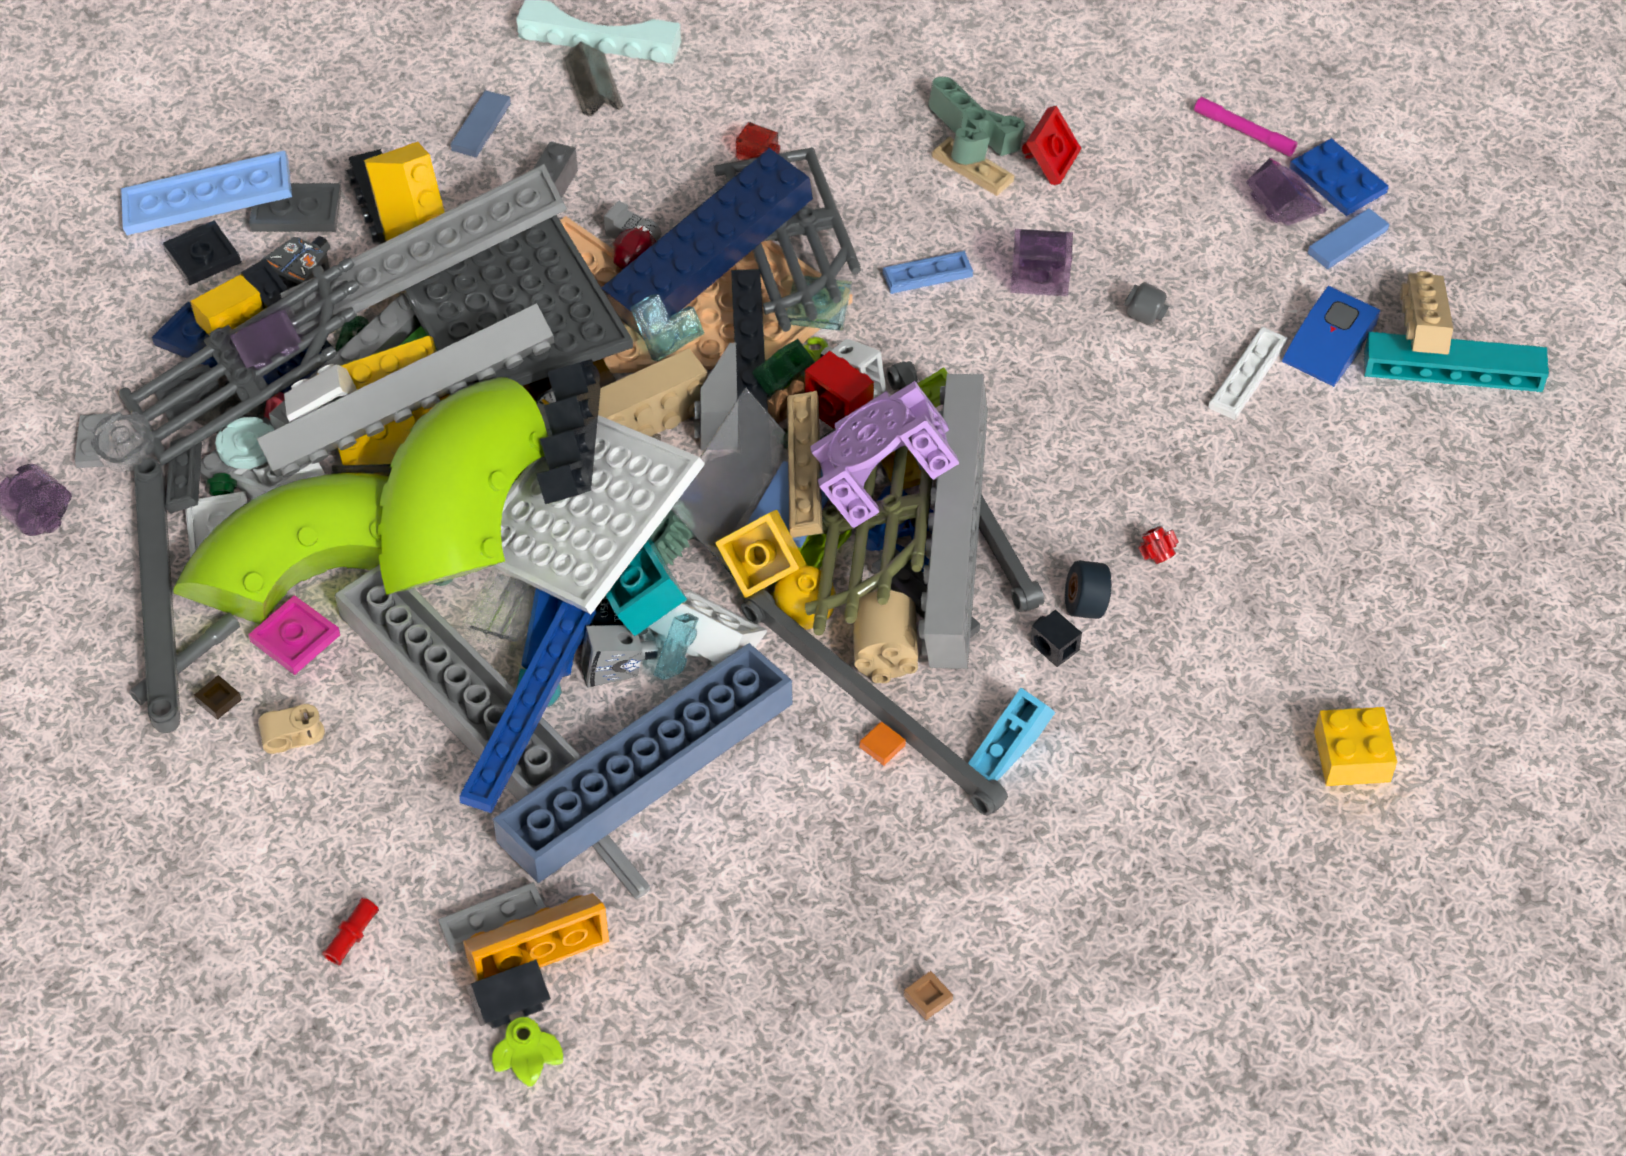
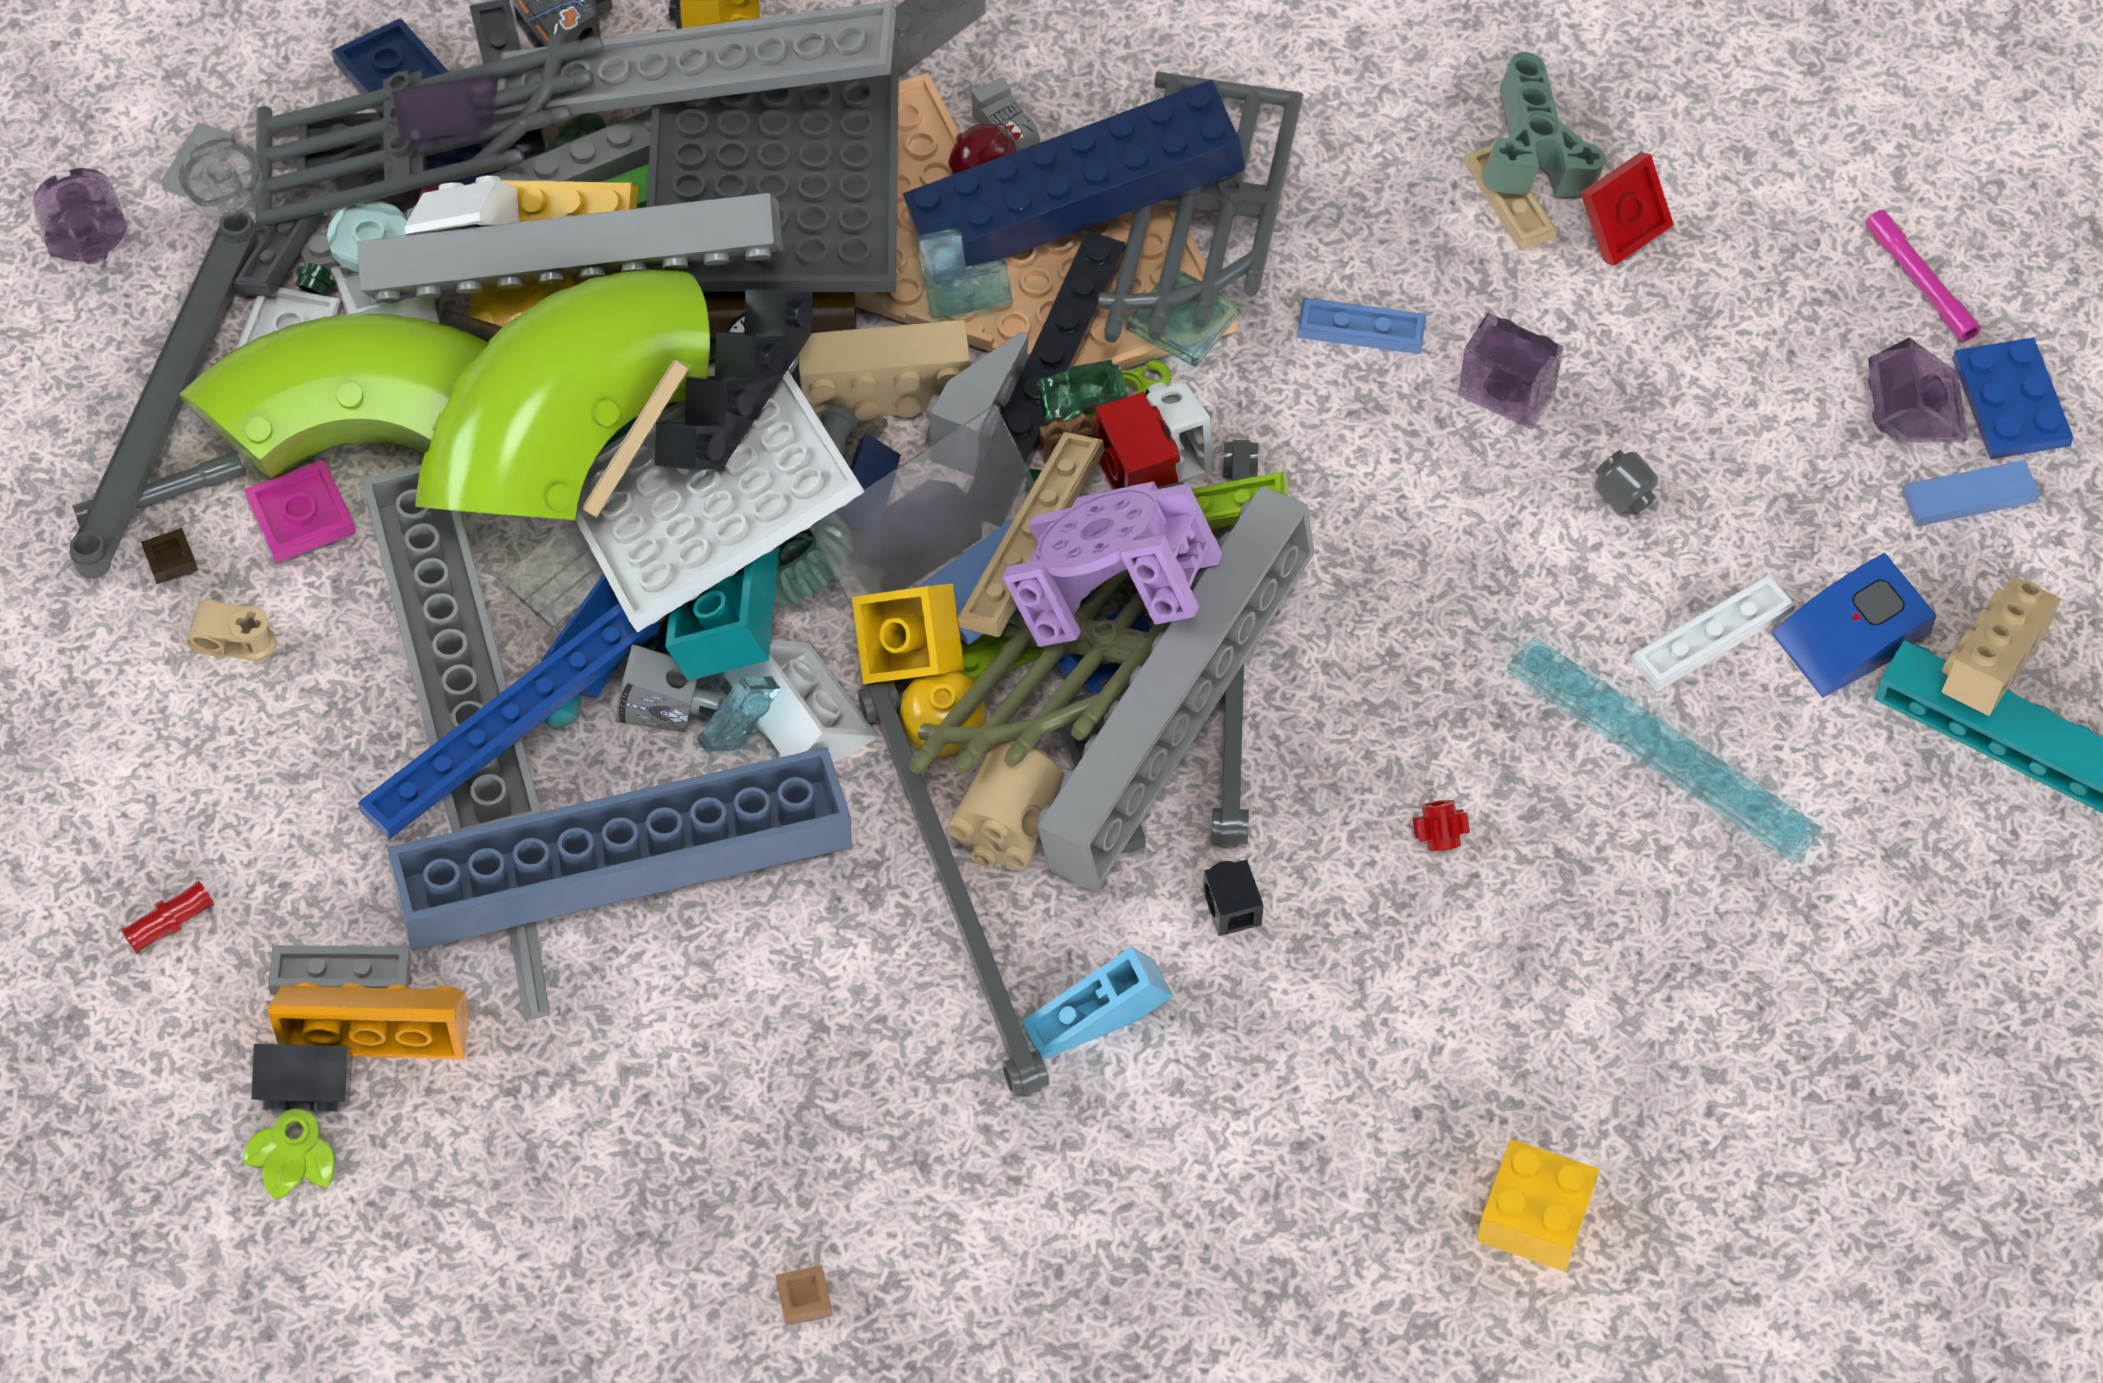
camera: 25 degrees right, 5 degrees up
(227, 305) = (436, 43): yellow brick -> none
(524, 490) = (635, 437): none -> tan tile
(755, 141) = (1233, 59): clear red brick -> none
(882, 743) = (935, 945): orange tile -> none
(1088, 589) = (1310, 849): black wheel -> none
(1261, 451) = (1665, 750): none -> clear light blue plate

